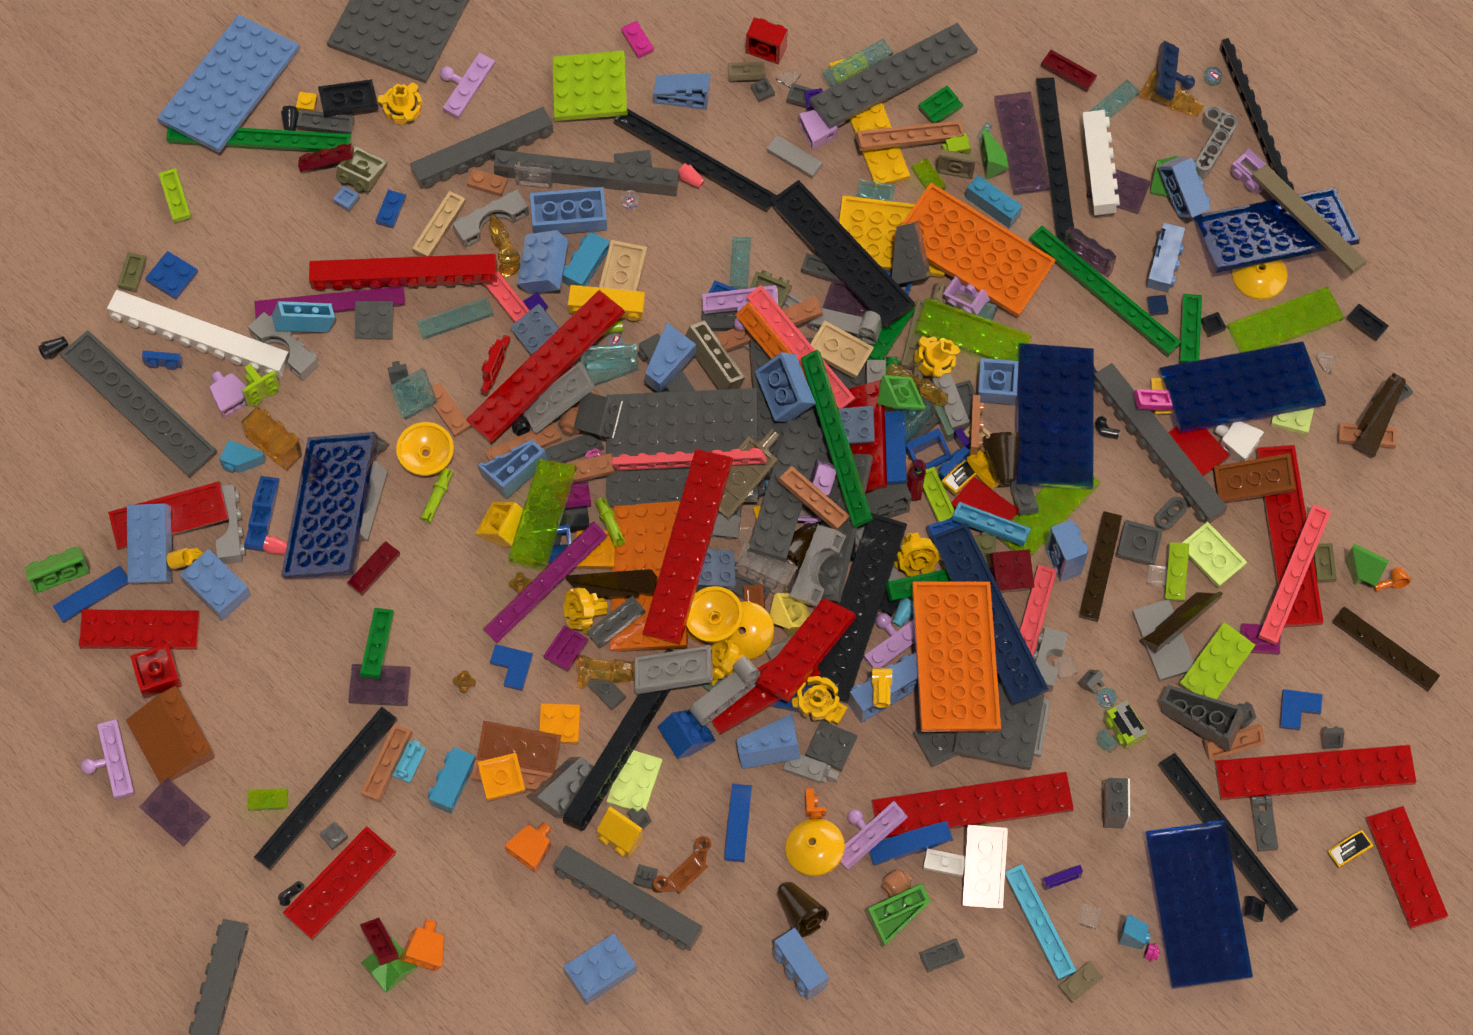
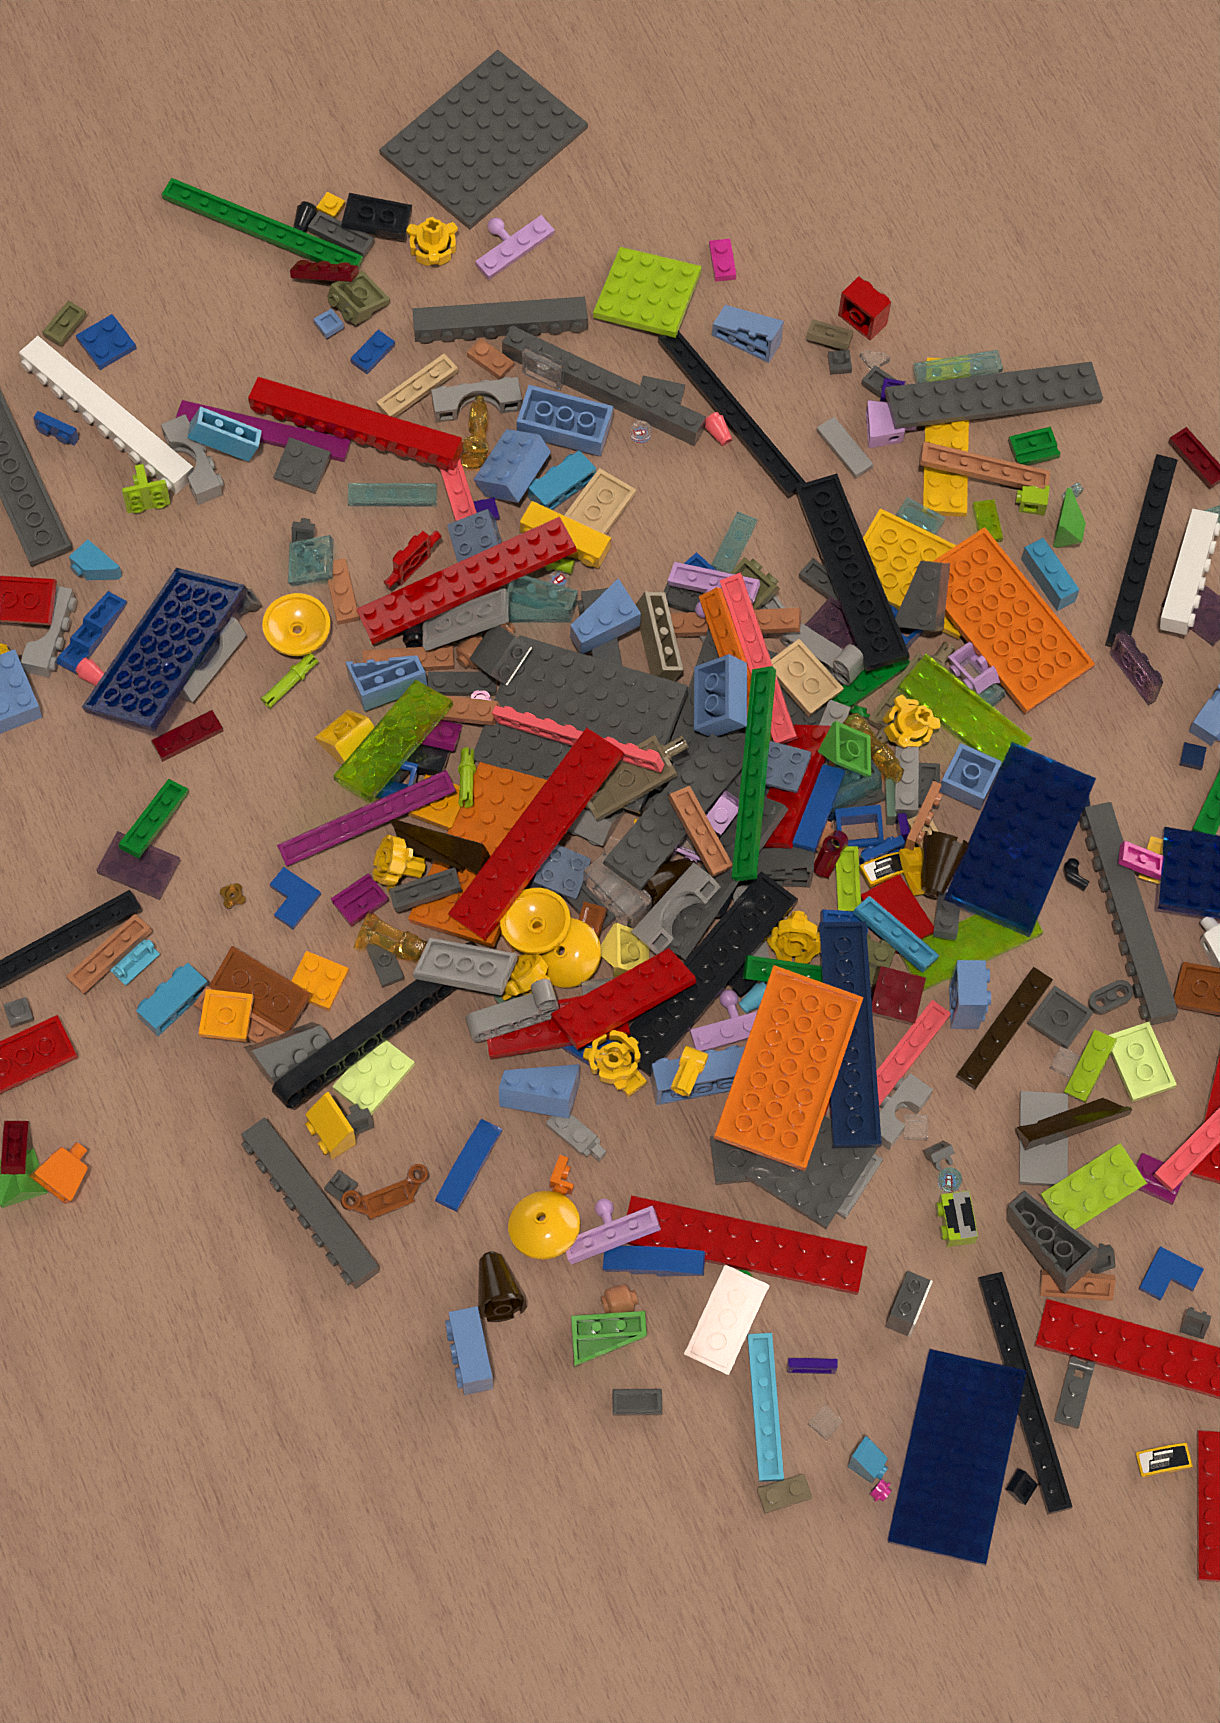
camera: 20 degrees right, 0 degrees up
(174, 195) = (145, 257): lime plate -> none
(227, 393) = (107, 489): lavender torso -> none
(228, 83) = (254, 157): medium blue plate -> none
(272, 438) = (135, 553): clear yellow brick -> none
(519, 578) = (341, 803): pearl gold plate -> none
(530, 846) = (227, 1104): orange torso -> none
(600, 969) = (245, 1270): medium blue brick -> none
(685, 734) = (451, 1043): blue slope -> none
(831, 745) = (611, 1117): dark grey plate -> none
(944, 863) = (683, 1297): white plate -> none
(956, 164) = (1023, 517): dark tan tile -> none
(1022, 143) = (1110, 520): clear purple plate -> none
(1105, 291) = (1138, 719): green plate -> none
(1106, 741) = (927, 1229): clear light blue plate -> none
(1200, 448) = (1175, 936): red tile -> none

